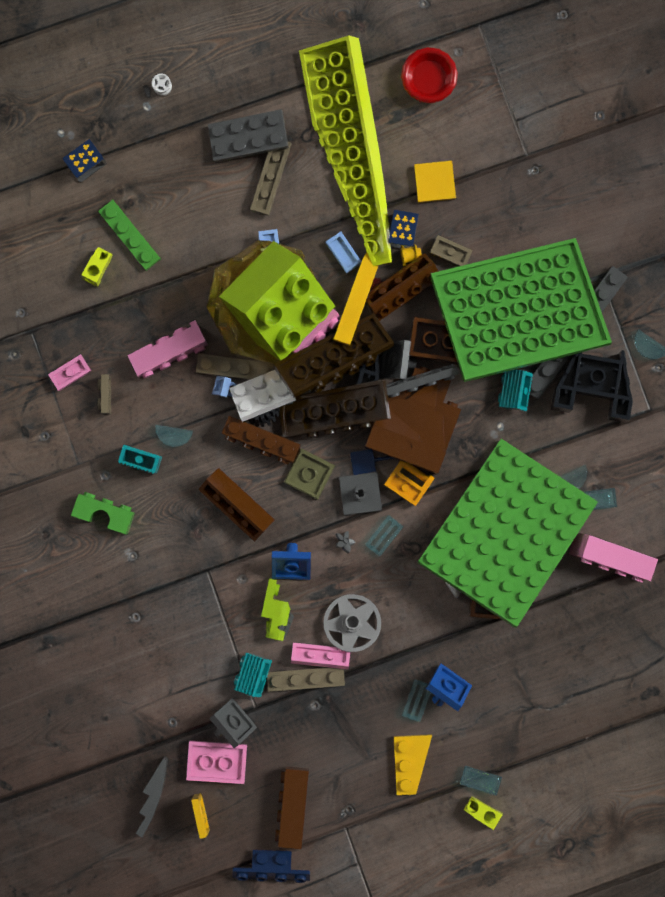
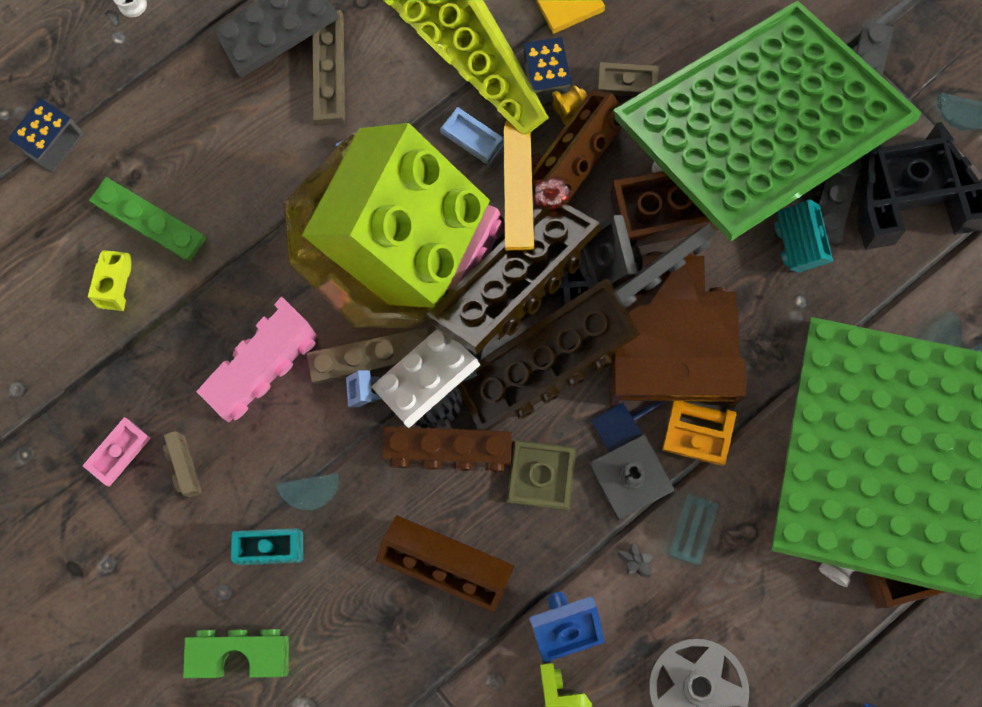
camera: 15 degrees left, 10 degrees down
(374, 313) = (551, 193): none -> clear red plant

